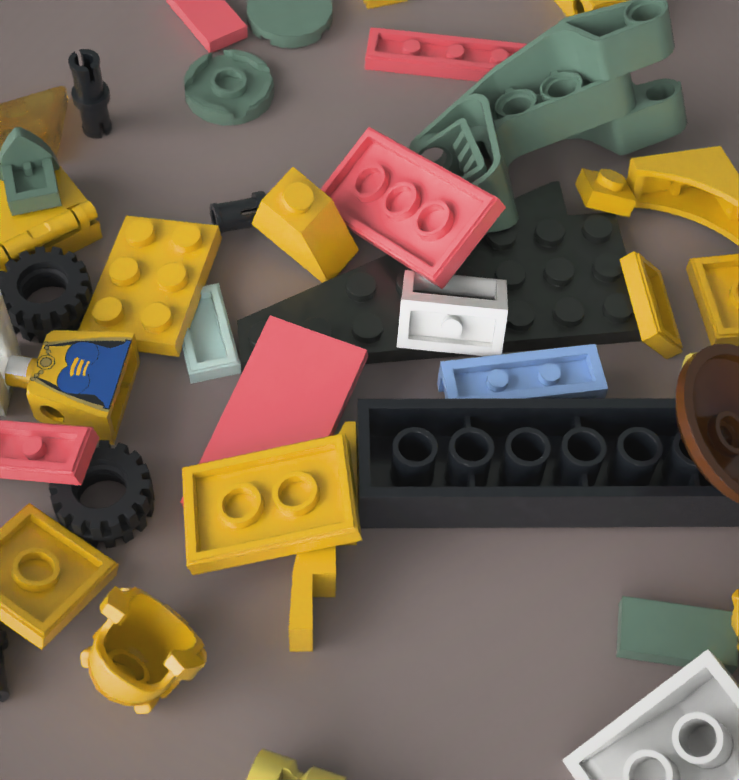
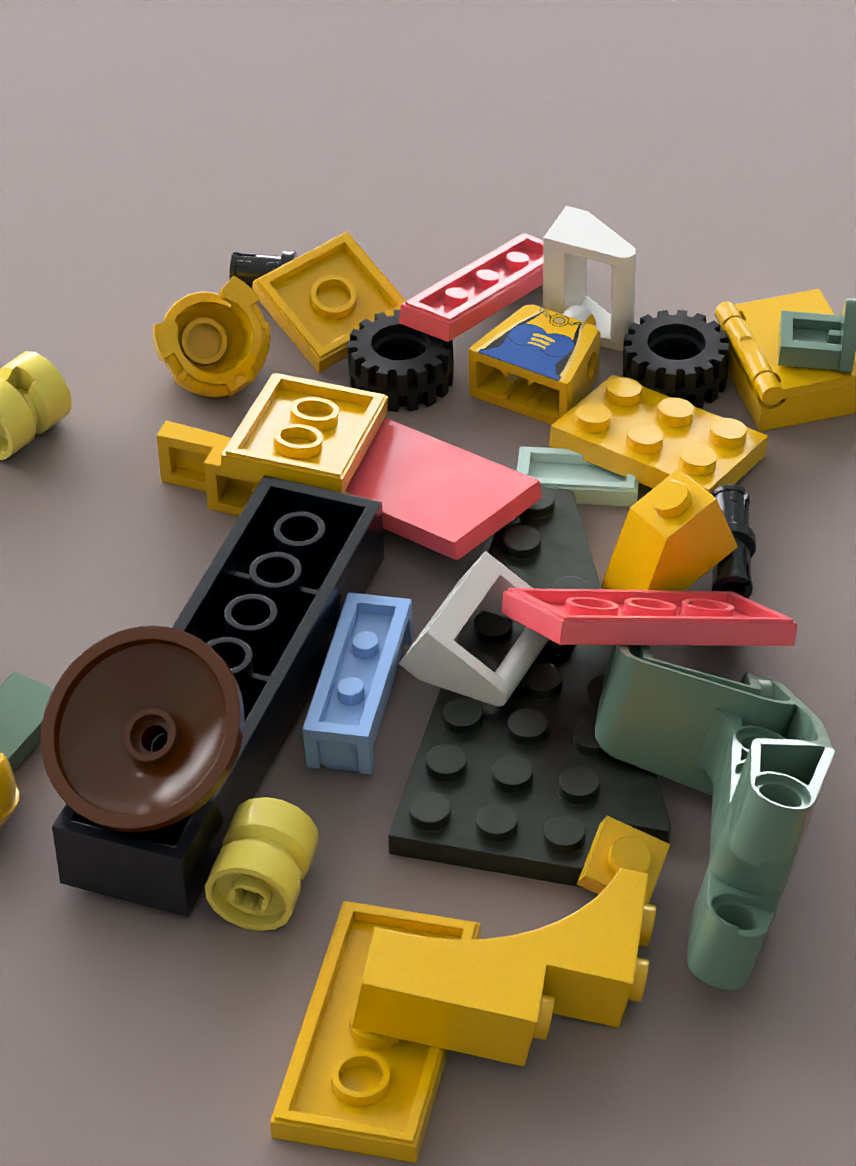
camera: 115 degrees right, 15 degrees down
(651, 305) = (419, 844): yellow tile -> none

